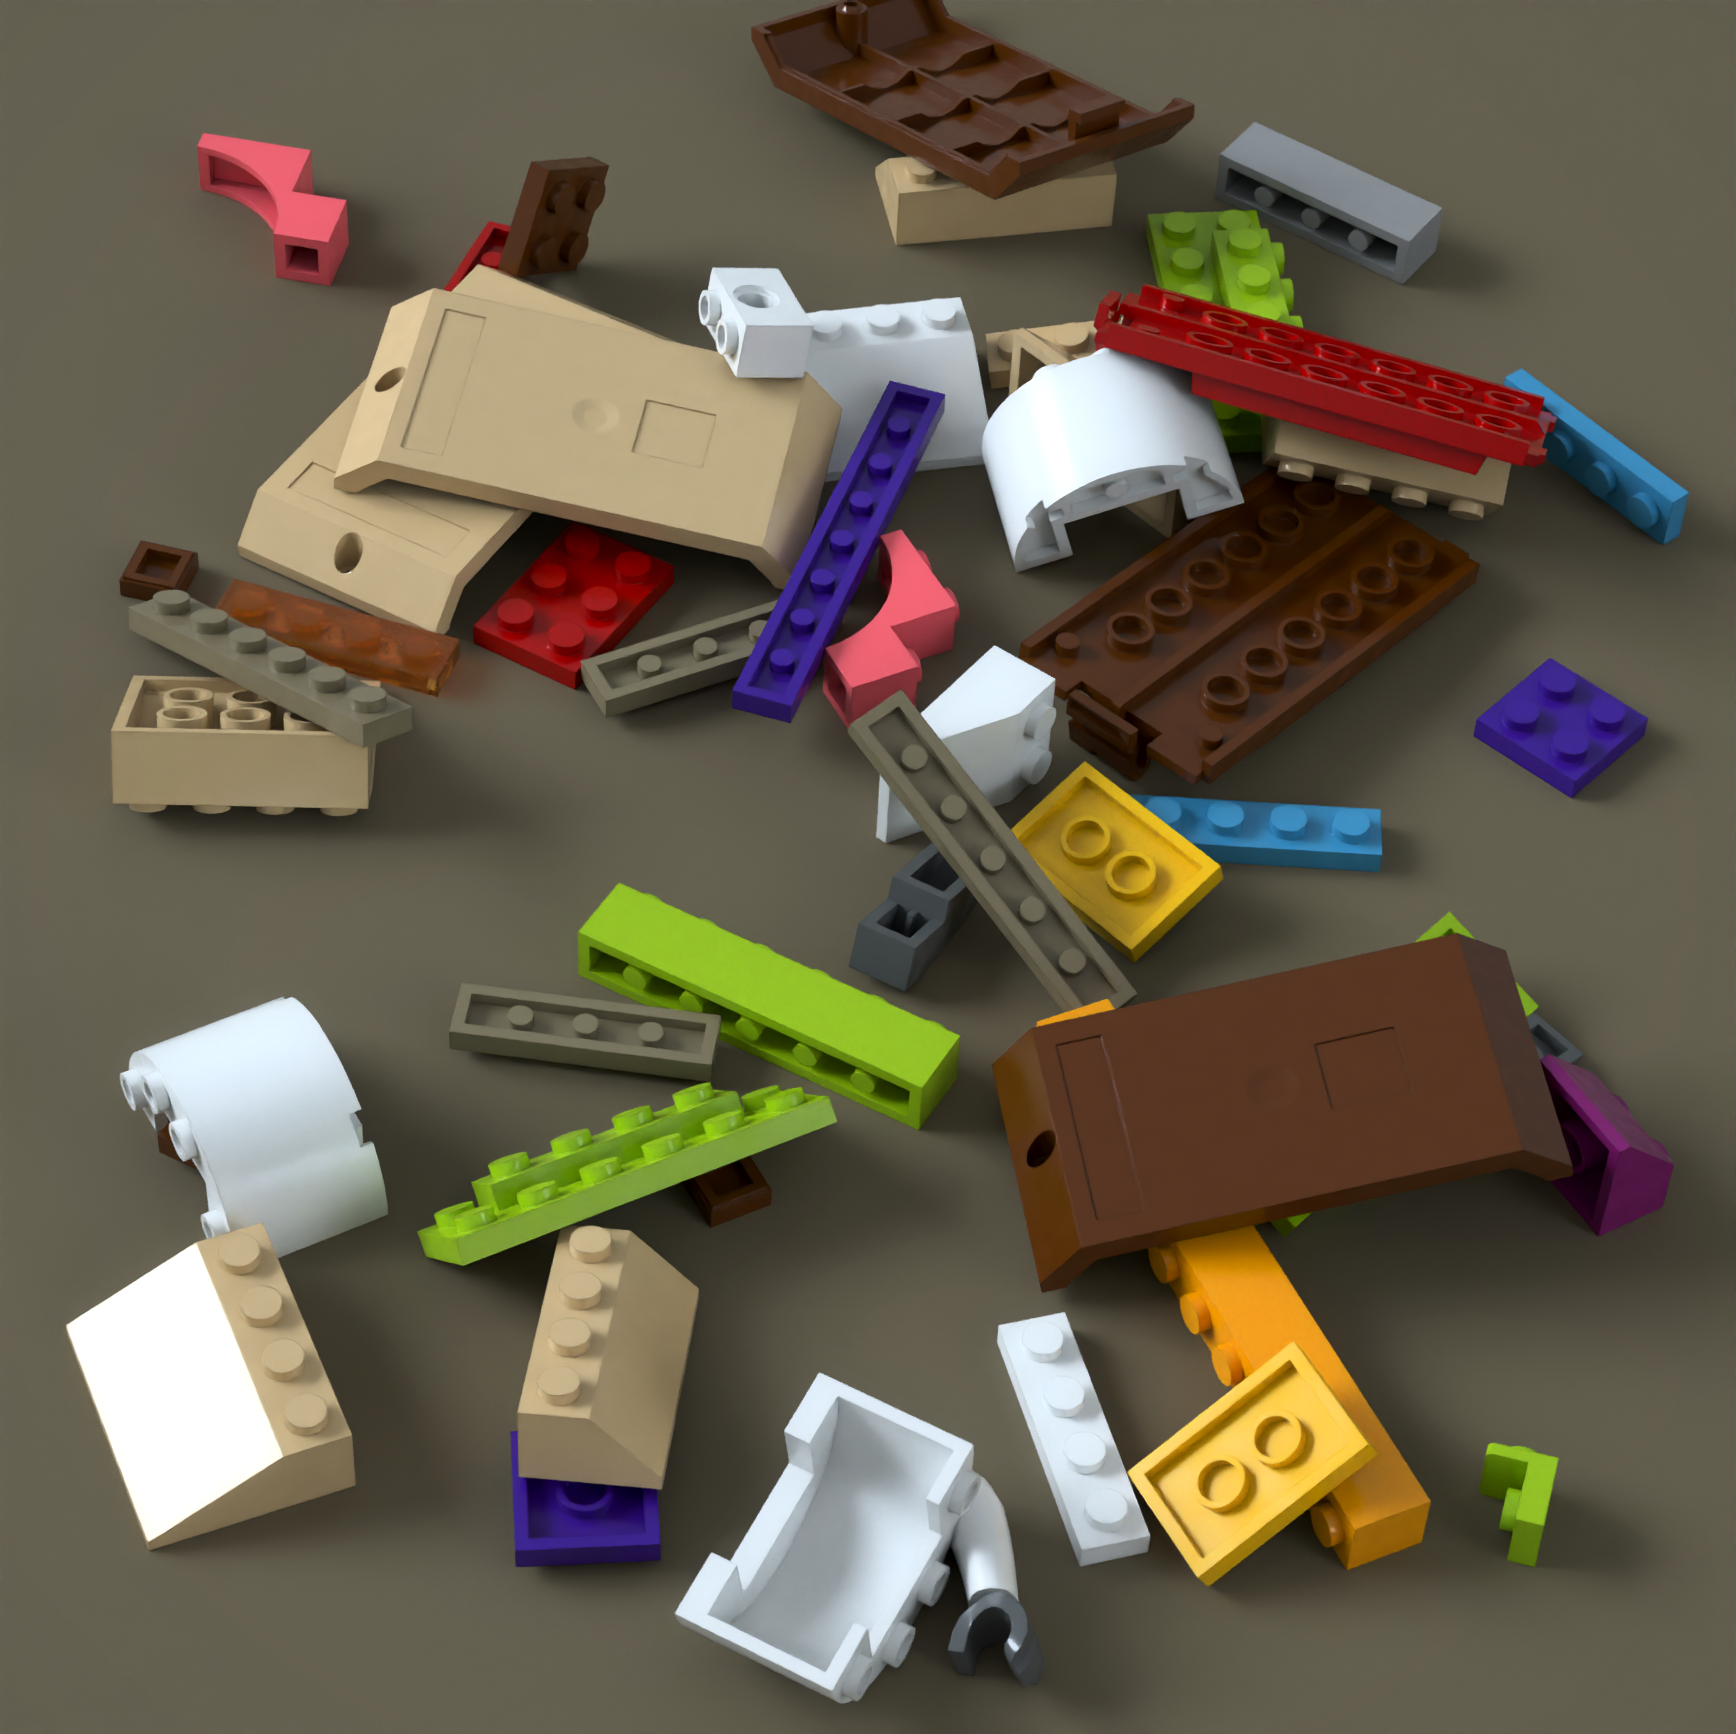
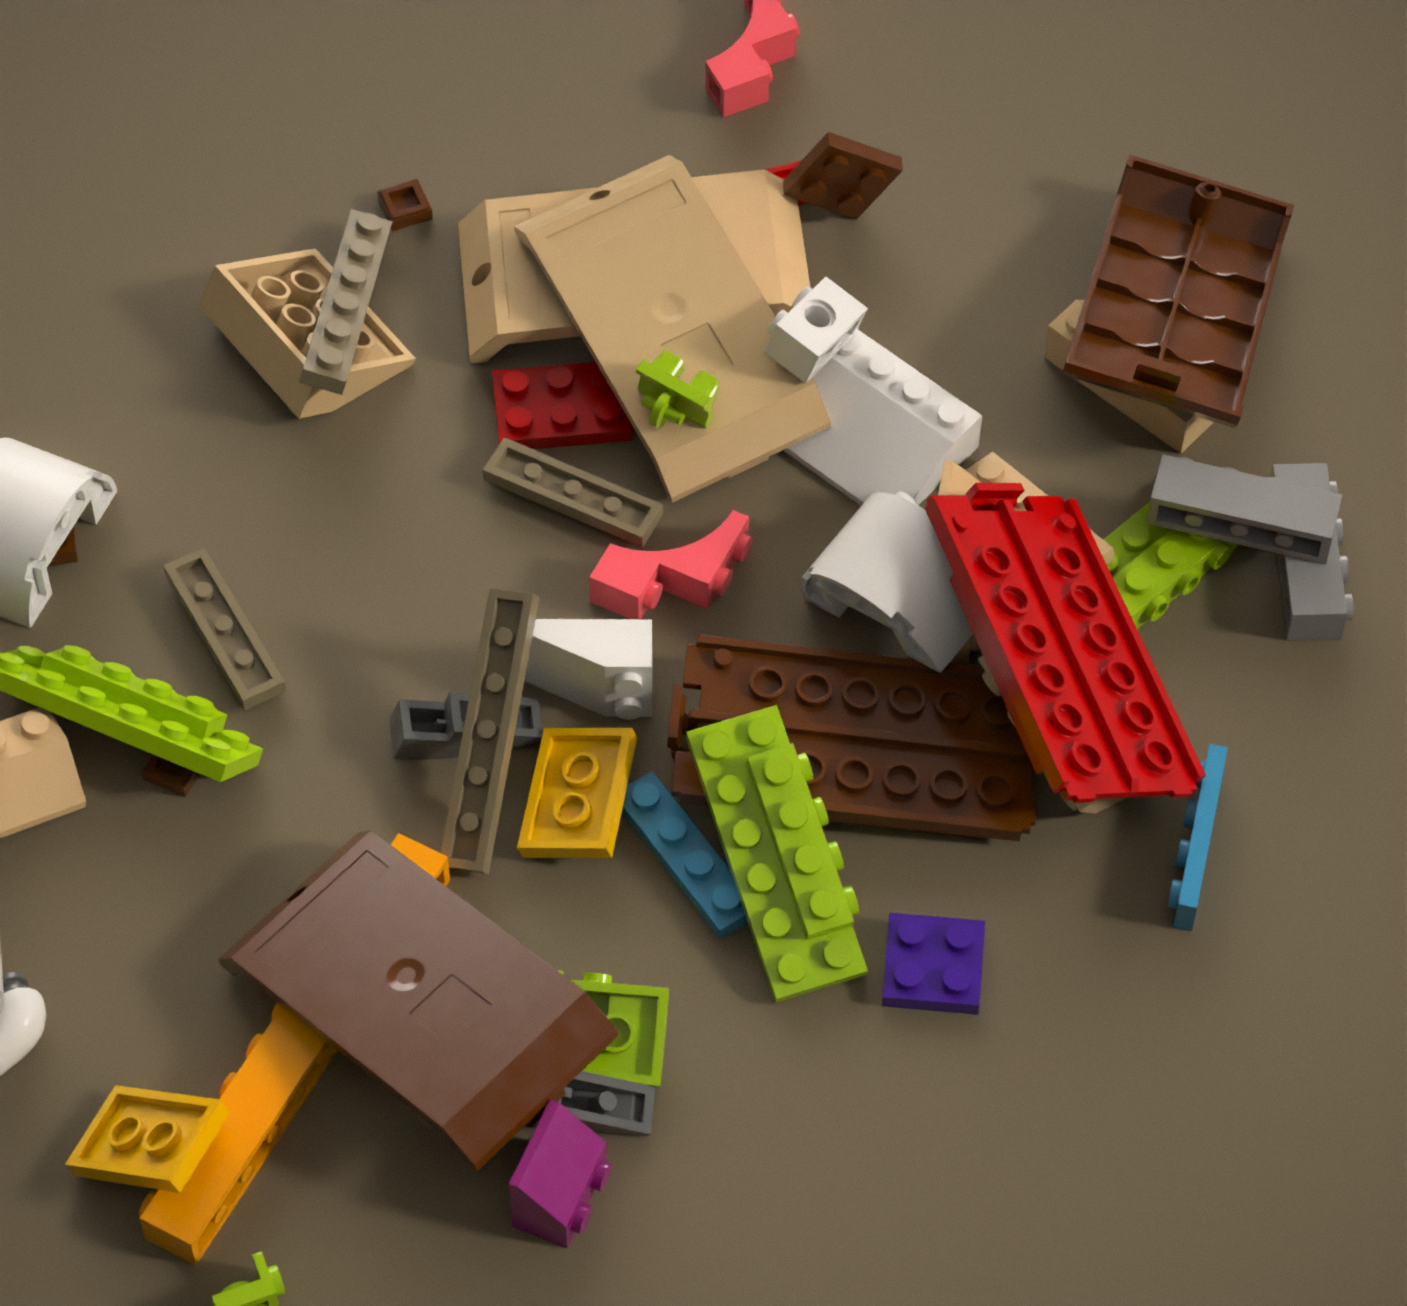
camera: 55 degrees right, 10 degrees up
(347, 638) = (430, 316): clear orange plate -> none
(719, 470) = (671, 397): none -> lime hips
(770, 1005) = (316, 701): lime brick -> none
(838, 553) = (704, 497): dark purple plate -> none
(1073, 1439) = (126, 1044): white plate -> none
(1268, 189) = (1244, 508): none -> light grey brick
(1350, 737) = (779, 853): none -> lime plate

